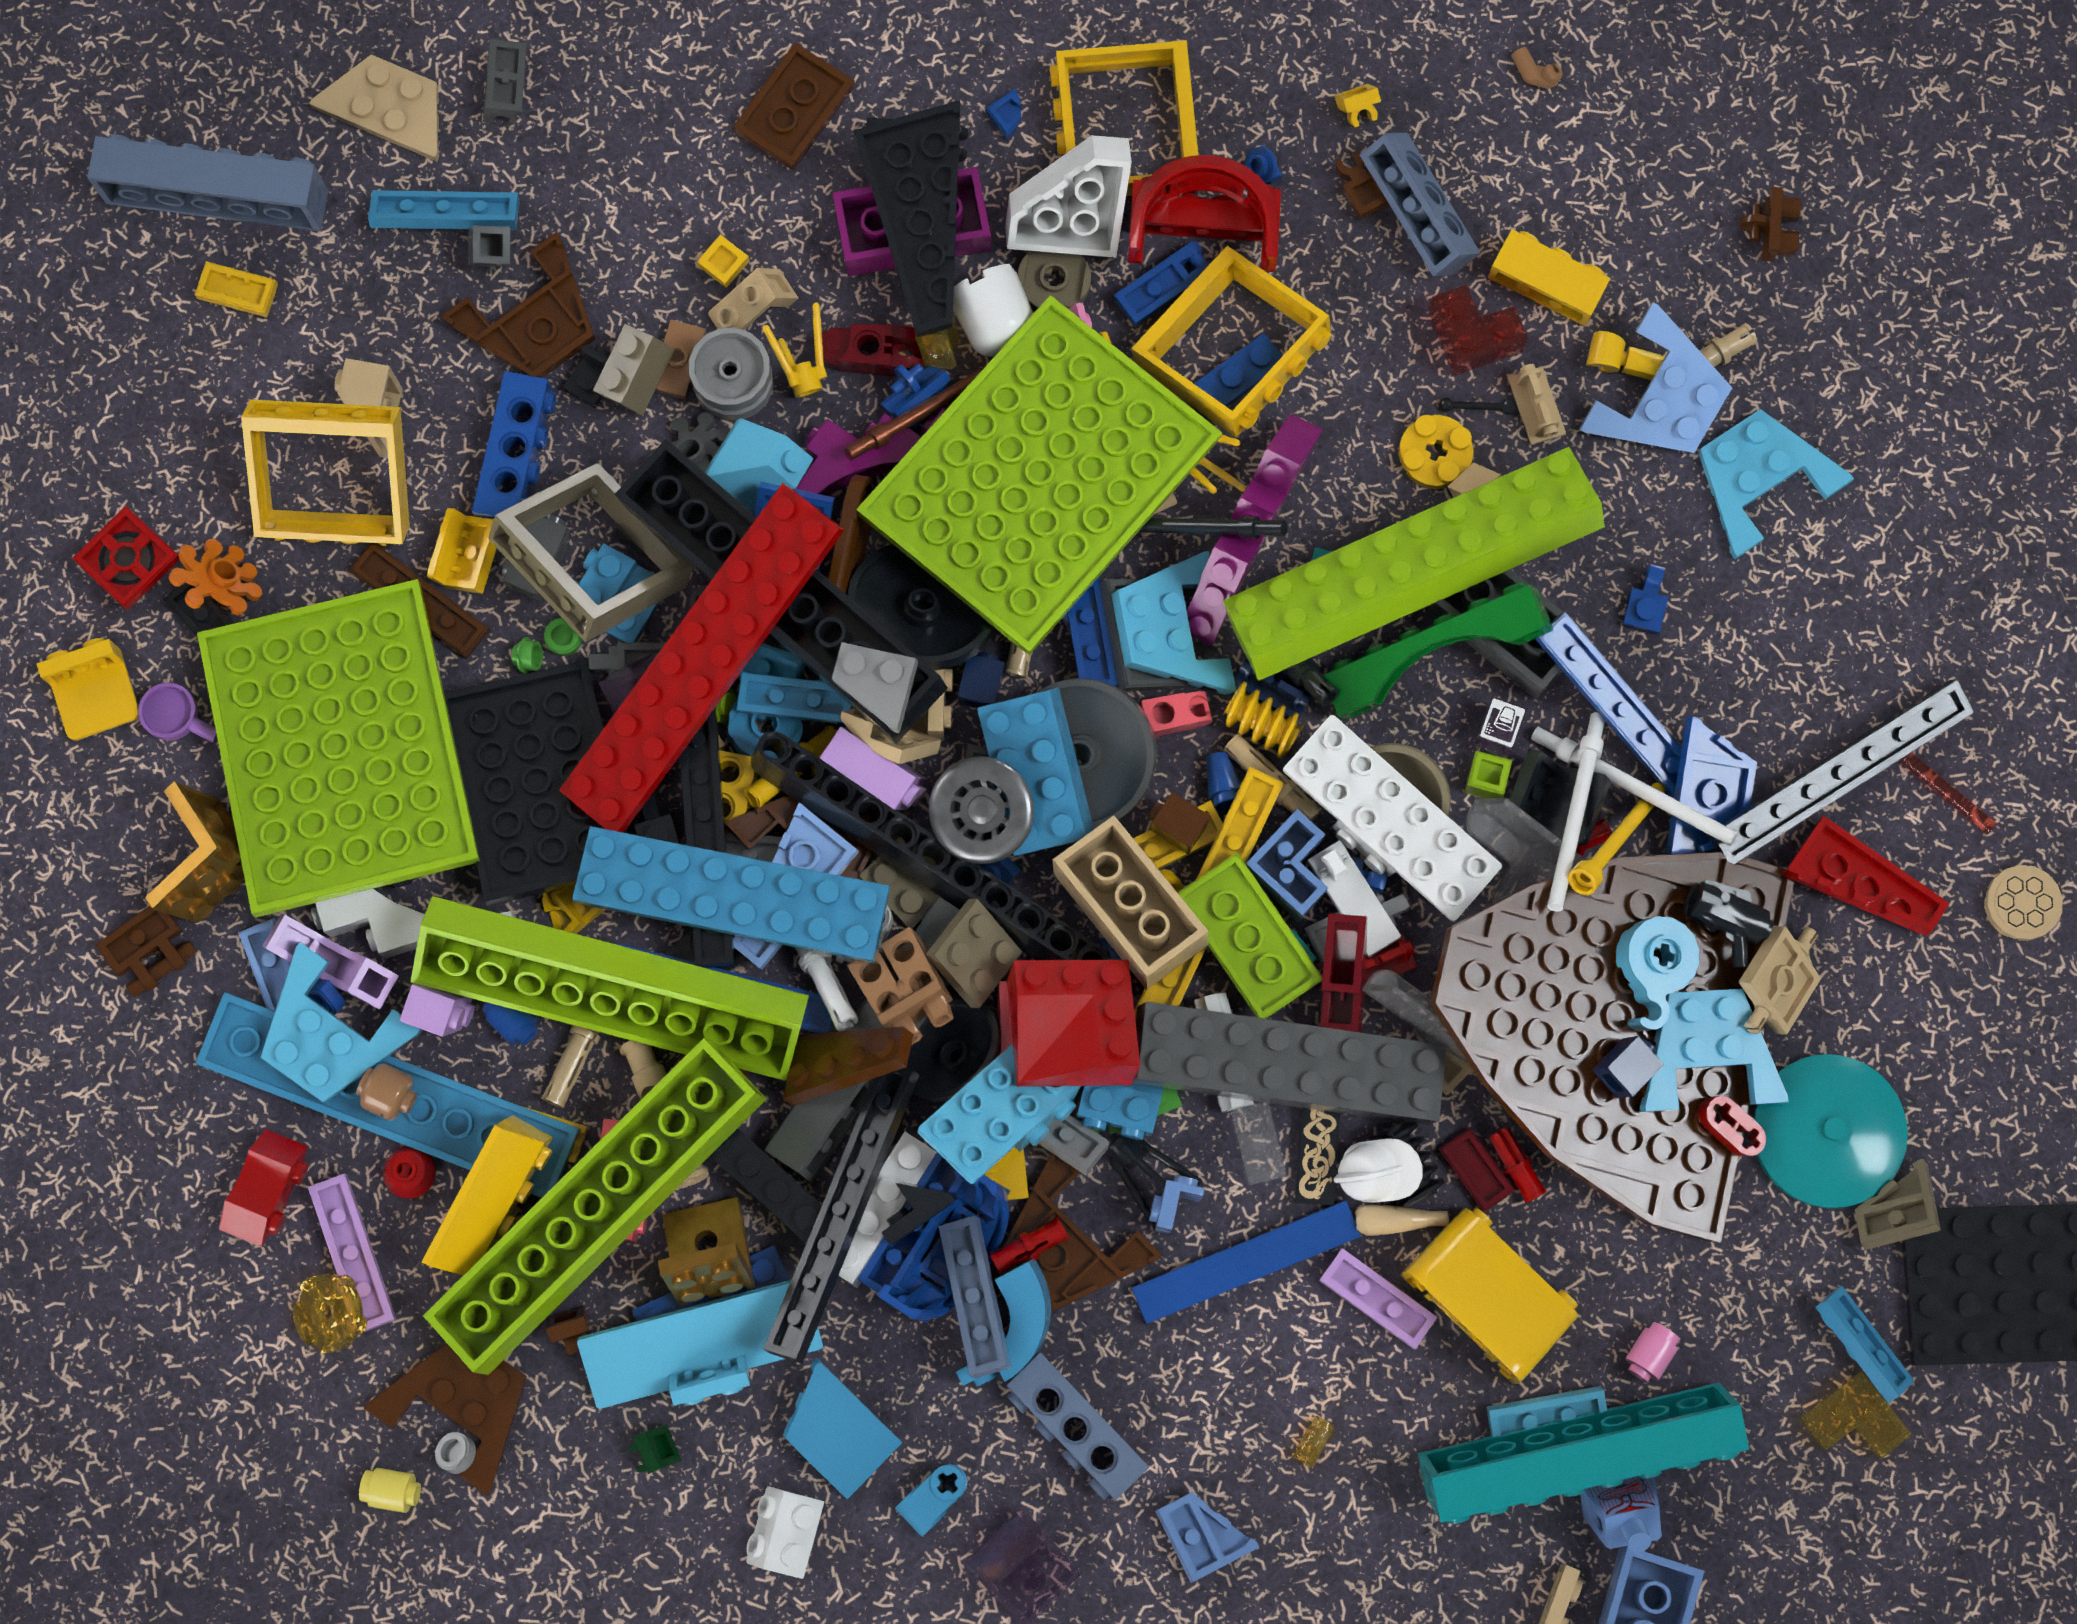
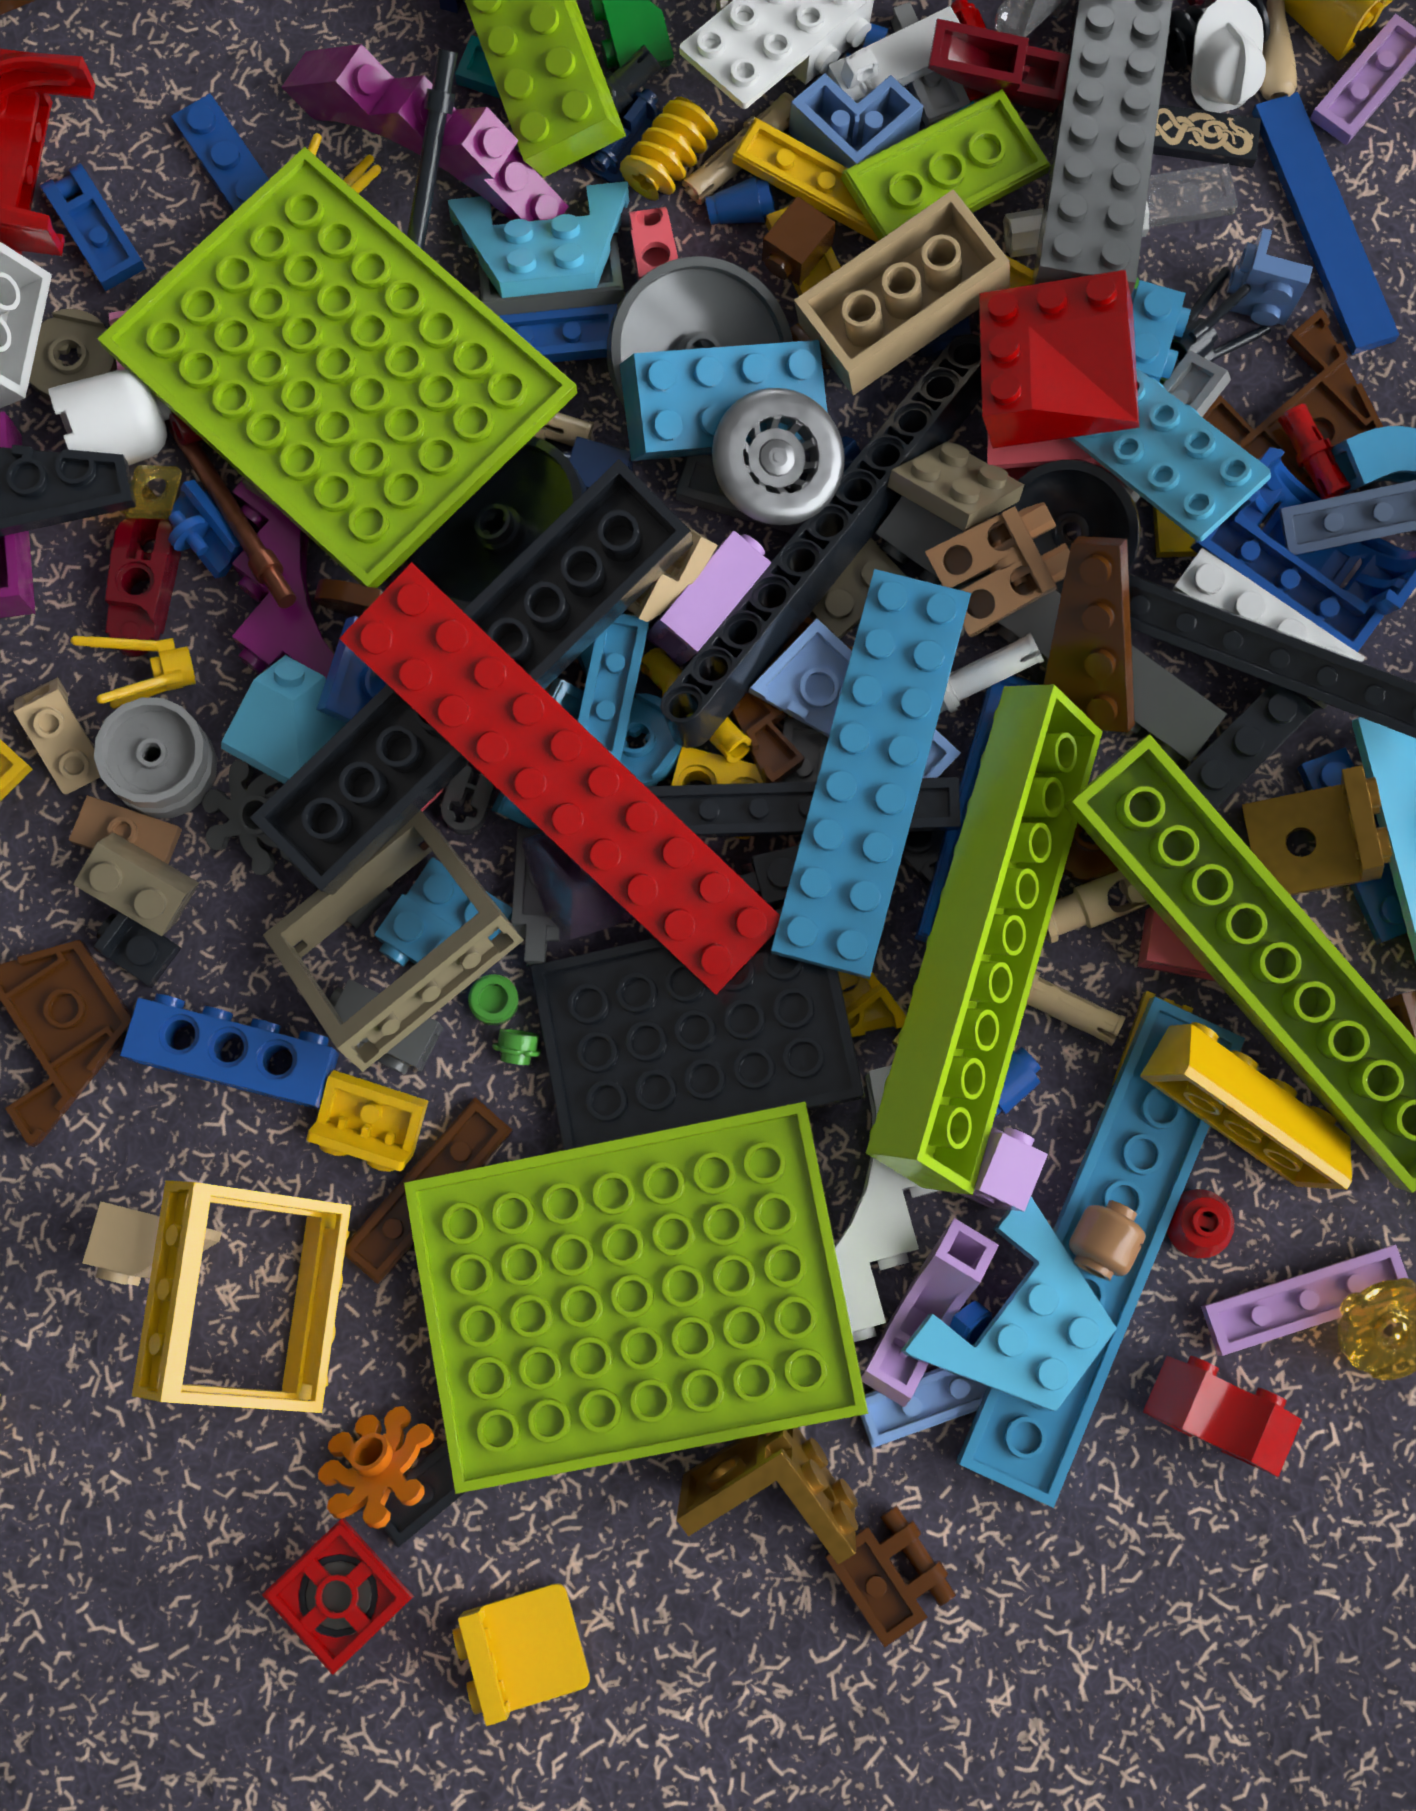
camera: 90 degrees left, 0 degrees up
(172, 713) = (562, 1536): medium lavender piece -> none
(877, 681) = (620, 538): light grey wing -> none
(925, 1203) = (1280, 550): black slope -> none
(1191, 305) = (127, 86): yellow window -> none

